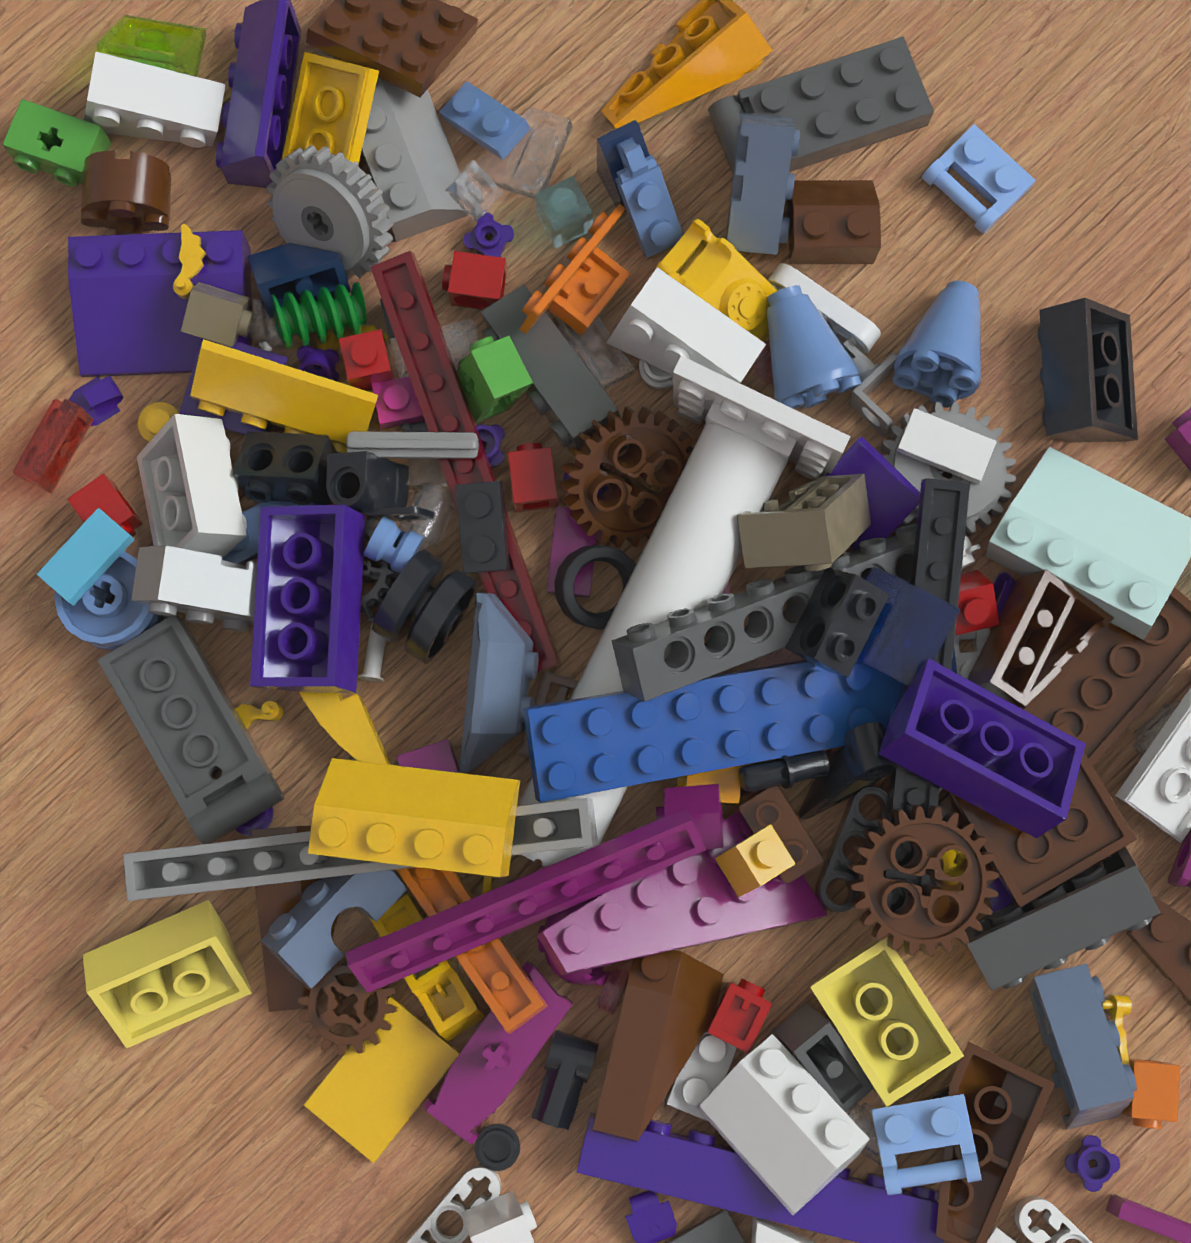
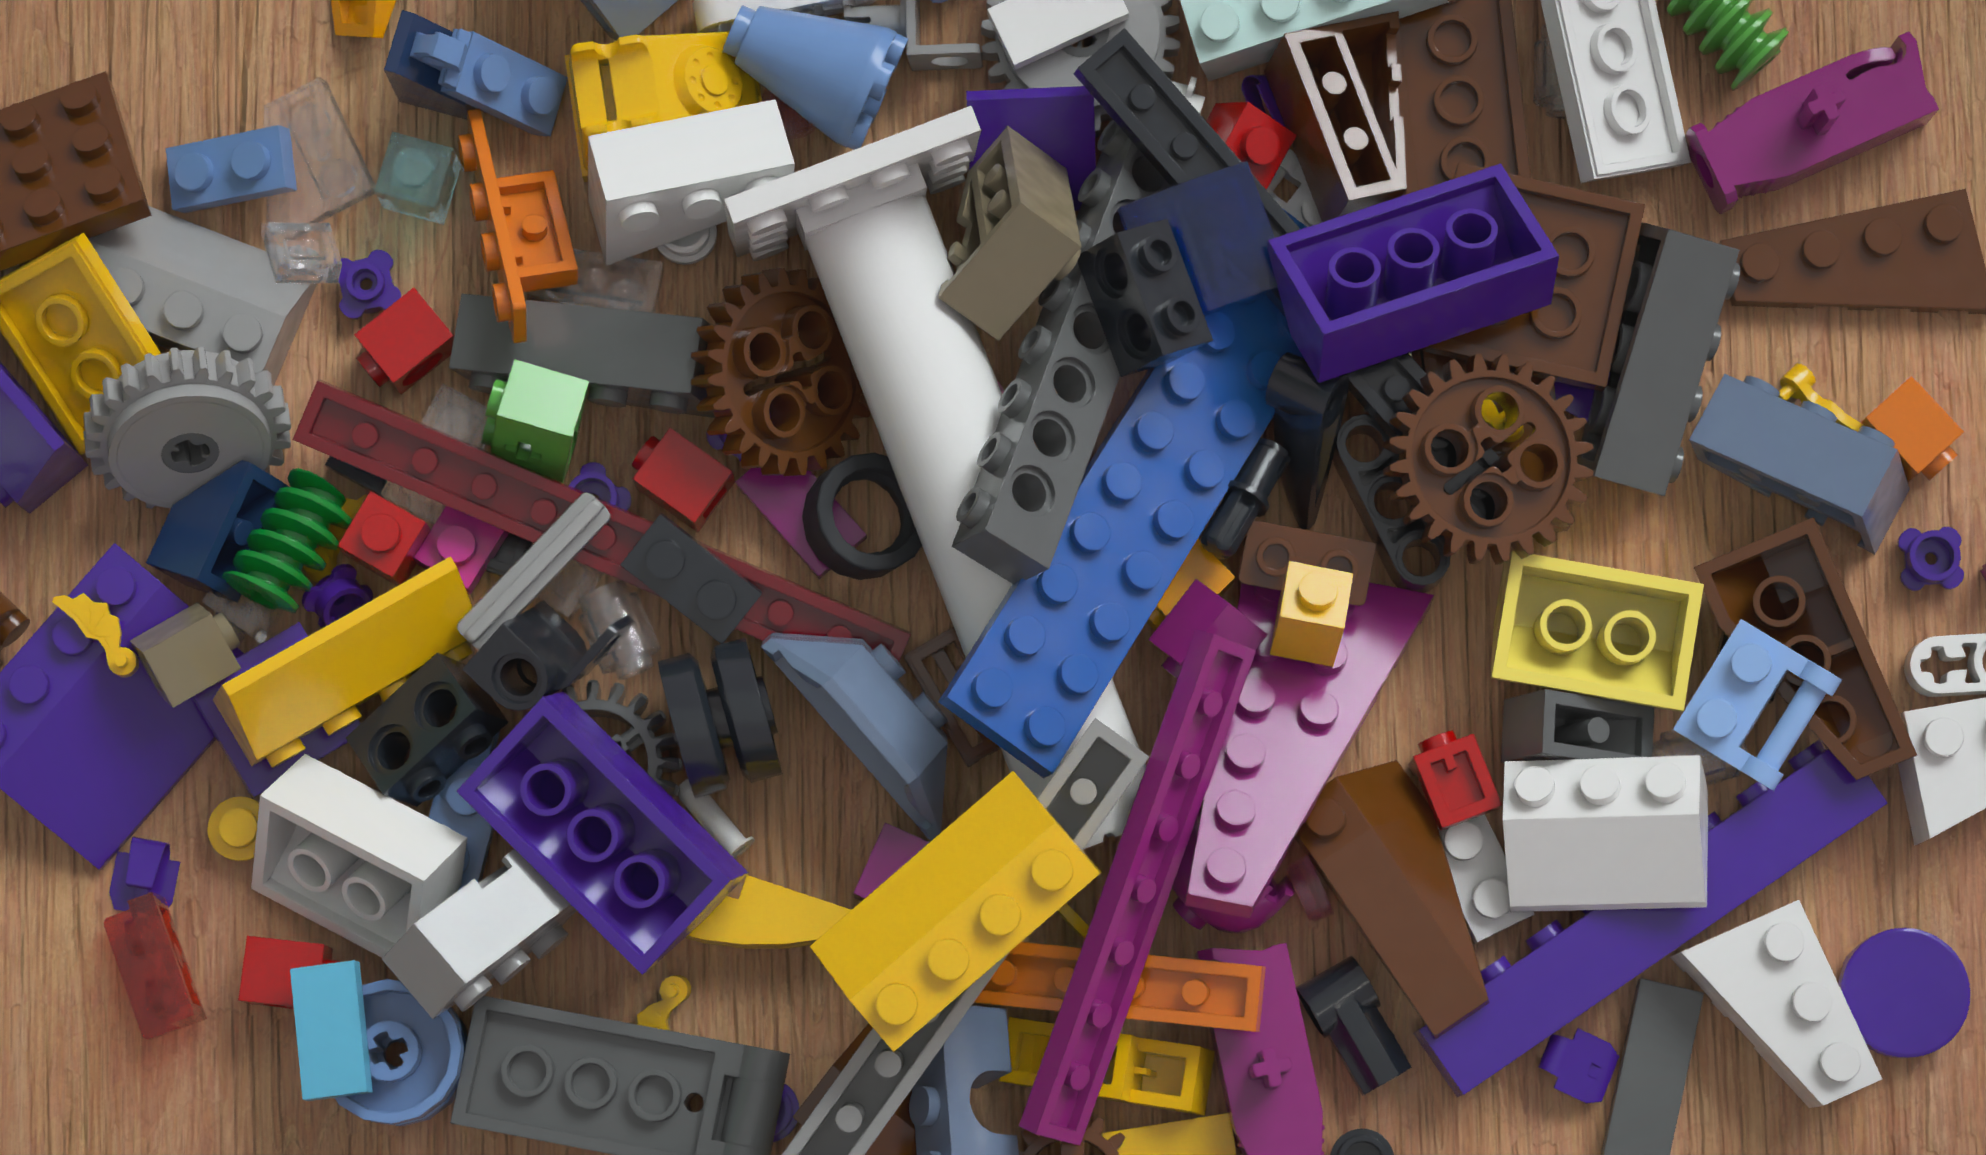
camera: 50 degrees left, 0 degrees up
(383, 543) = (611, 691): medium blue wheel -> none

